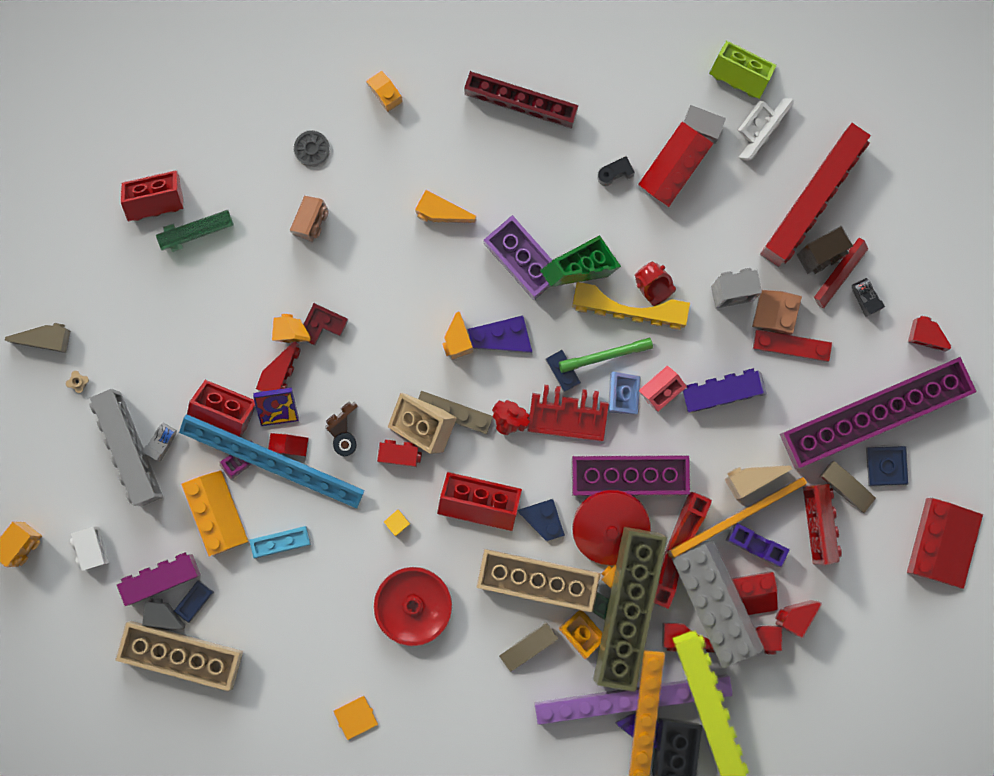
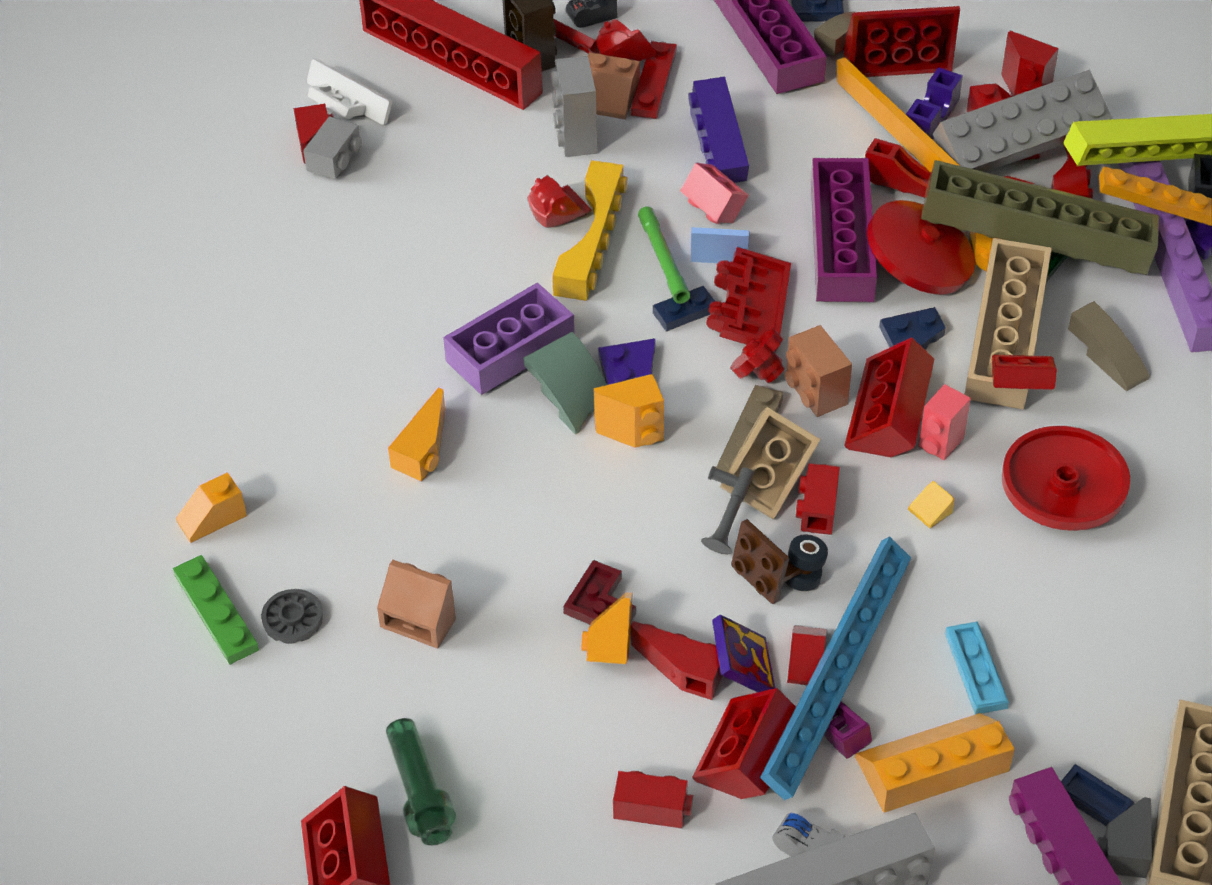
camera: 90 degrees left, 35 degrees down
(185, 357) = (651, 799): none -> red brick
(315, 103) = (215, 609): none -> bright green plate
(363, 392) = (719, 540): none -> dark grey piece
(451, 532) = (944, 422): none -> coral brick
(487, 584) = (1023, 372): none -> red slope
(491, 297) = (567, 378): none -> sand green slope
(494, 454) = (818, 371): none -> nougat brick
(520, 99) = (259, 338): dark red brick -> none
(582, 633) = (1083, 288): light orange slope -> none
(583, 263) = (524, 260): green wedge -> none
(615, 170) = (386, 241): black leg -> none
(675, 163) = (388, 167): red slope -> none
(725, 106) = (308, 122): none -> red slope
(742, 69) = (261, 111): lime slope -> none
(750, 479) = (844, 105): tan slope -> none
(819, 319) = (621, 42): none -> red helmet

